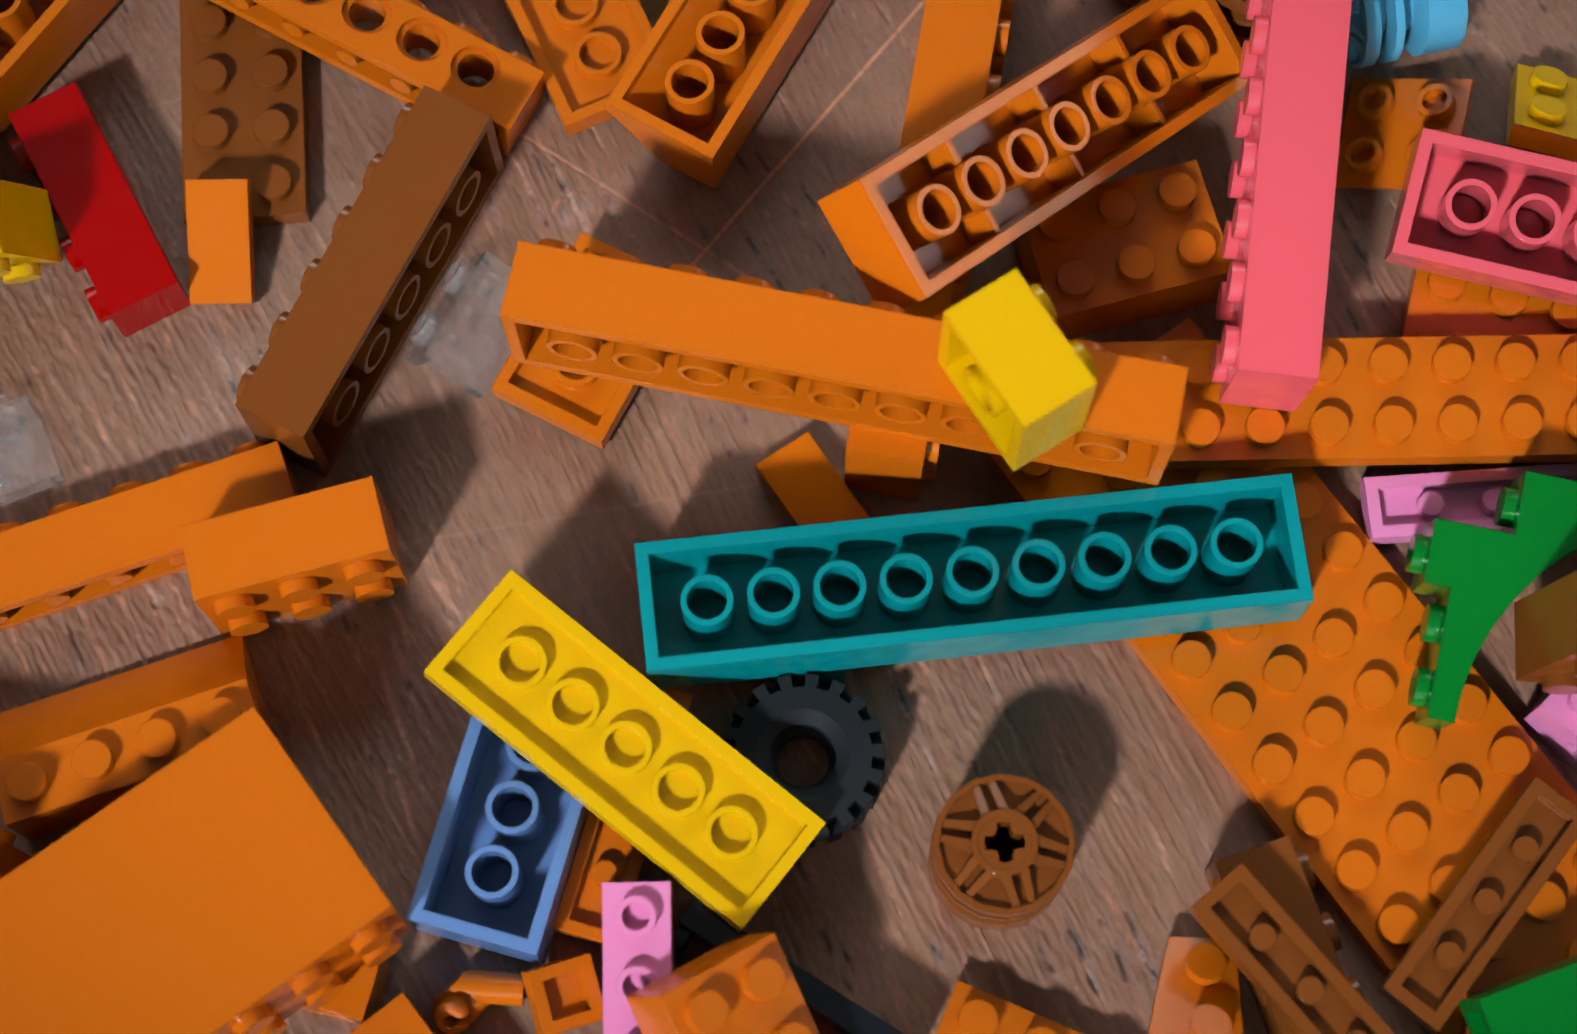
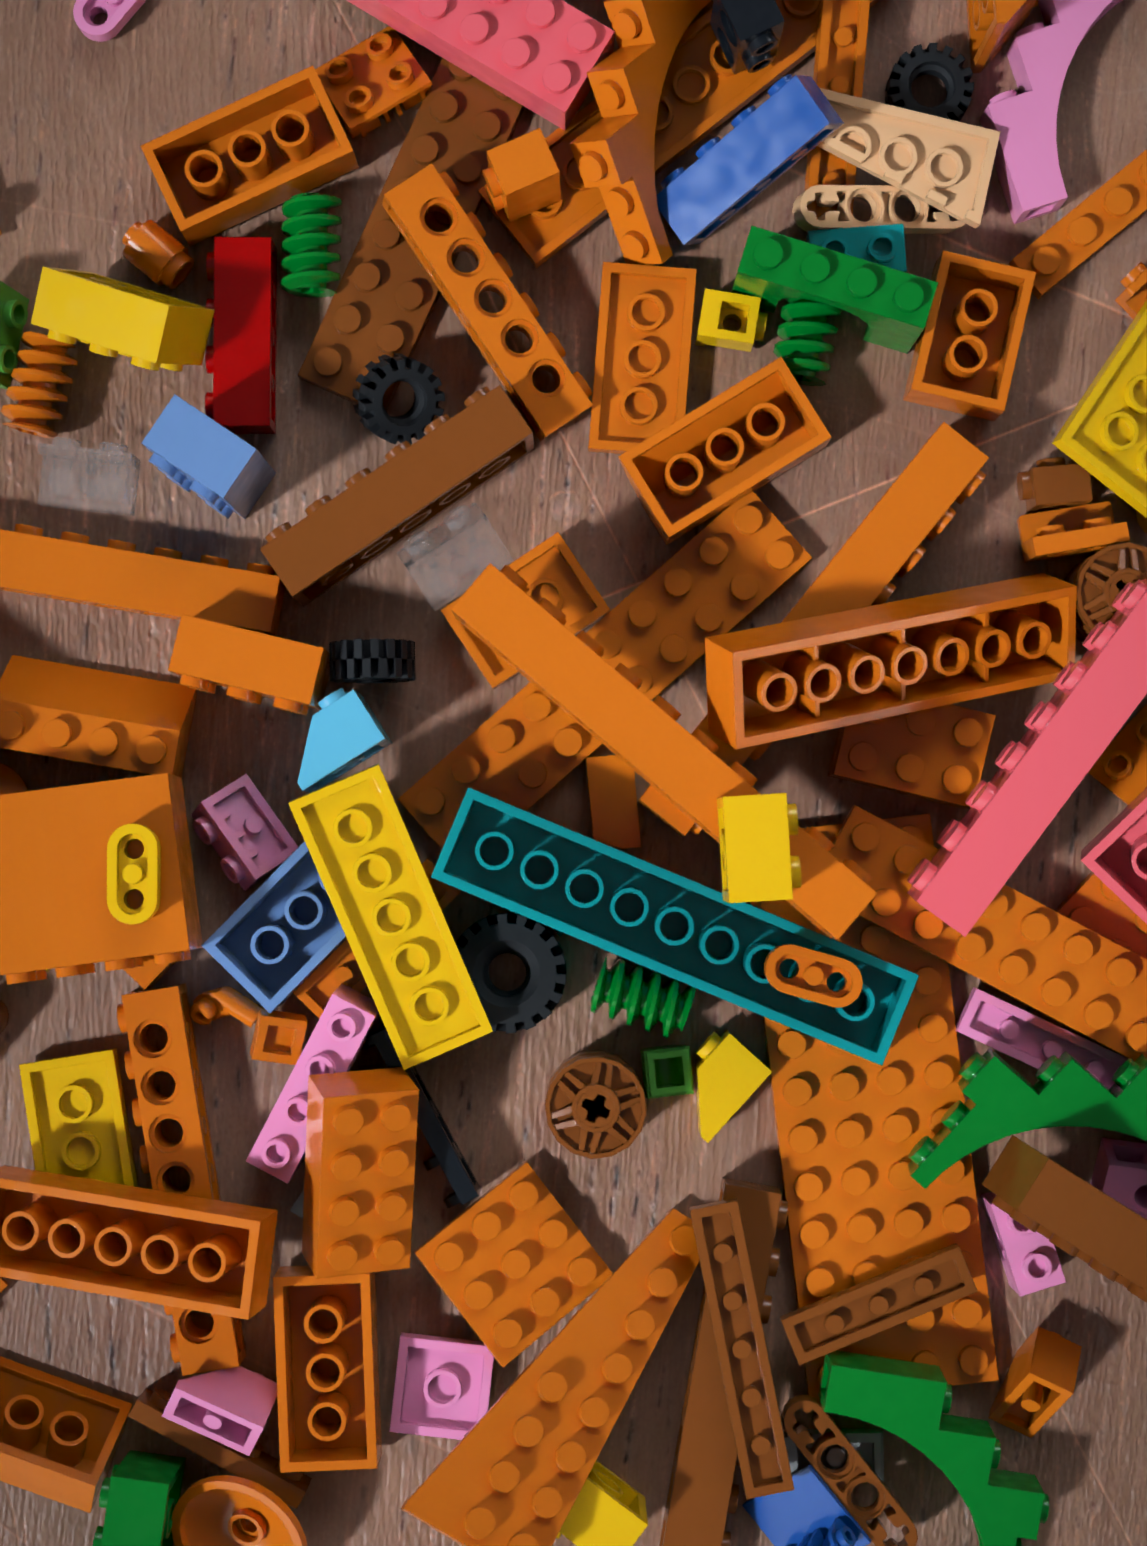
camera: 30 degrees right, 15 degrees up
(122, 342) = (207, 459): none -> medium blue brick
(127, 75) = (309, 244): none -> green piece
(220, 241) = (314, 405): orange tile -> none
(273, 845) = (130, 874): none -> yellow plate
(280, 181) = (375, 384): none -> black tyre
(385, 770) = (243, 832): none -> bright pink bracket
(440, 480) = (372, 661): none -> black tyre
(448, 573) = (339, 739): none -> medium azure slope
(698, 454) = (651, 632): none -> orange plate
(983, 699) = (642, 997): none -> green piece
(1065, 769) = (667, 1071): none -> bright green brick
(1137, 745) = (724, 1080): none -> yellow slope
(1166, 530) = (812, 975): none -> orange plate

